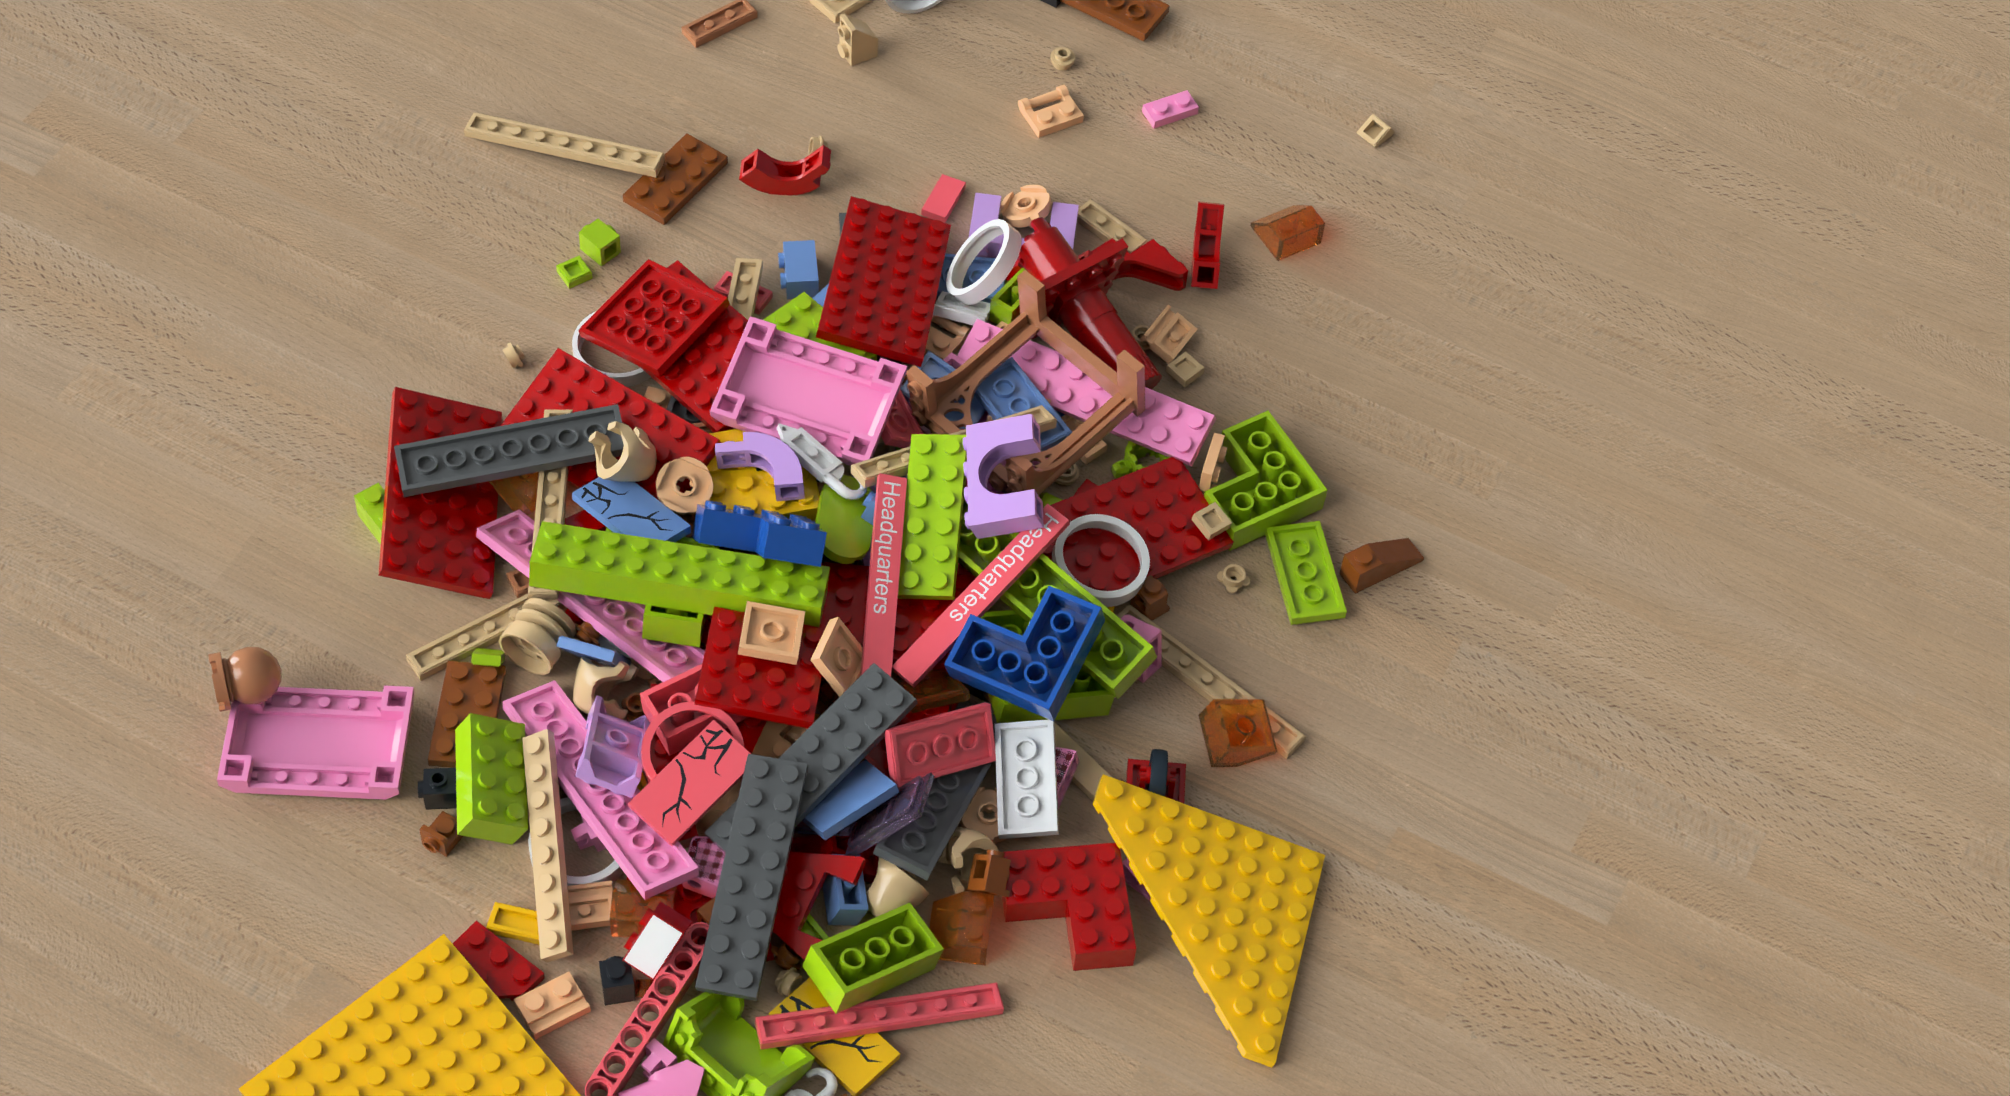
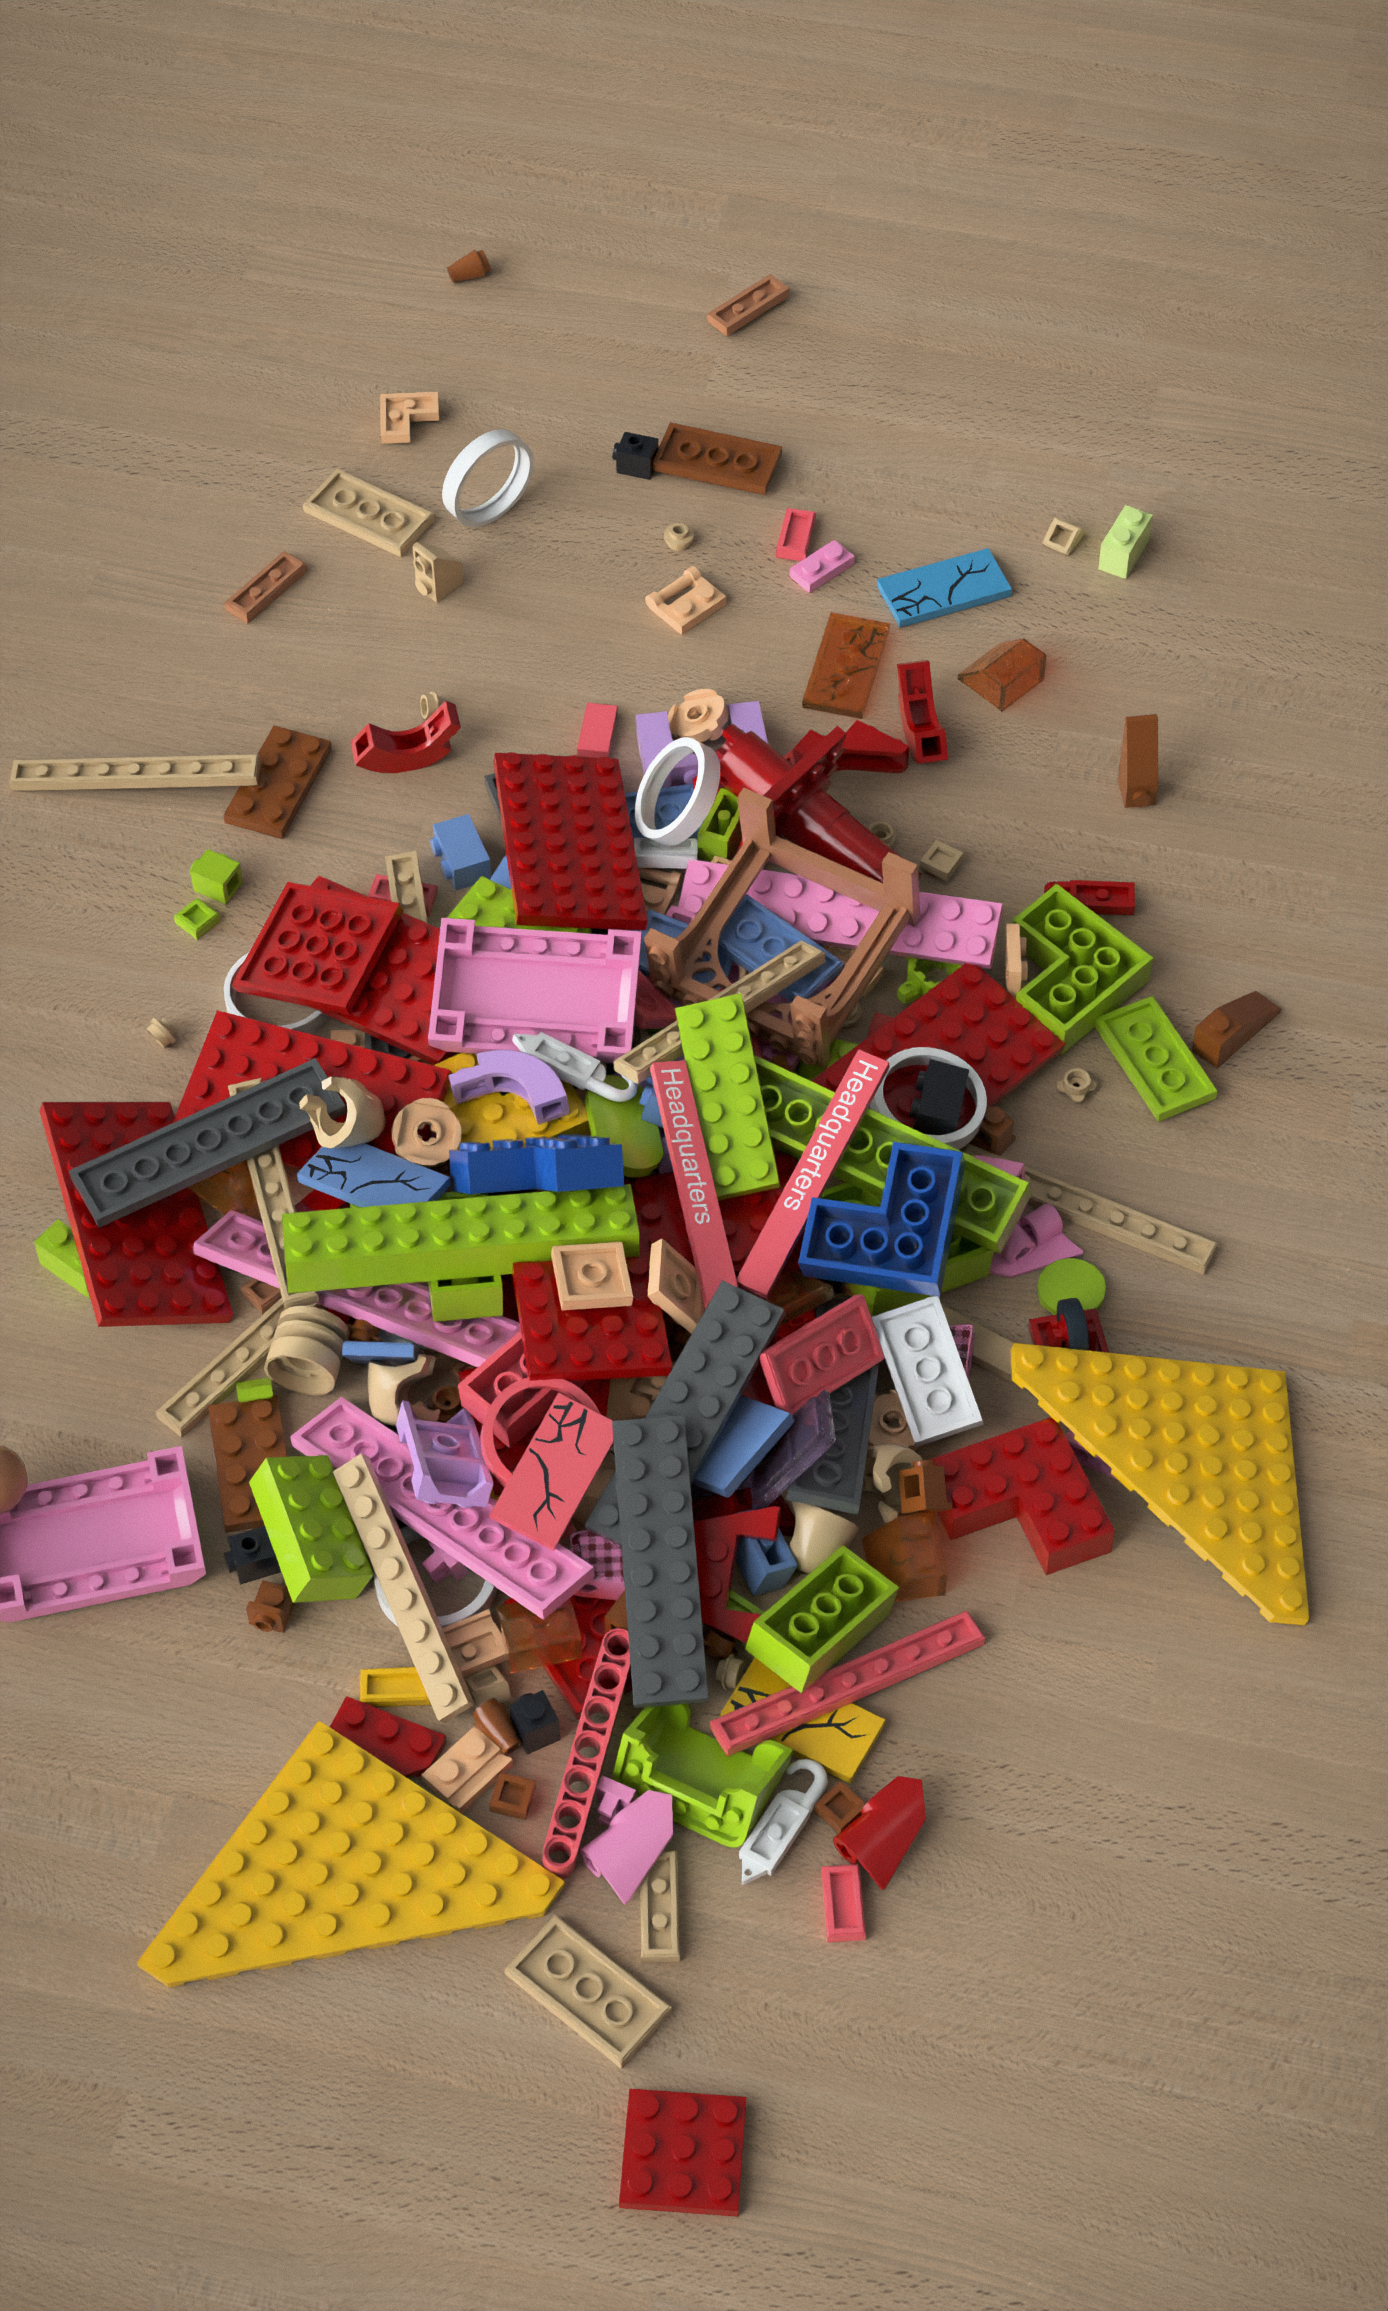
camera: 10 degrees left, 0 degrees up
(580, 1035) = (512, 1796): none -> dark orange plate
(587, 975) = (497, 1725): none -> dark orange cone
(590, 945) = (488, 1685): none -> tan slope
(642, 986) = (568, 1722): clear orange hand -> none
(656, 940) = (571, 1662): white brick -> none
(985, 448) = (768, 1001): lavender arch -> none
(1108, 226) = (796, 717): tan tile -> none
(1110, 560) = (940, 1098): none -> black brick
(1152, 698) = (1034, 1244): none -> bright pink panel
(1158, 78) = (796, 534): none -> coral tile
(1162, 193) = (846, 665): none -> clear orange tile
(1168, 334) = (910, 825): light nougat plate -> none
(1175, 736) = (1071, 1279): none -> lime tile
(1211, 521) = (1036, 1025): tan plate -> none
(1237, 731) = (1141, 1257): clear orange slope -> none
(1263, 149) = (944, 587): none -> dark azure tile
(1305, 429) = (1101, 896): none -> red hinge
(1371, 327) = (1139, 761): none -> dark orange slope
(1424, 147) = (1125, 541): none -> yellowish green brick

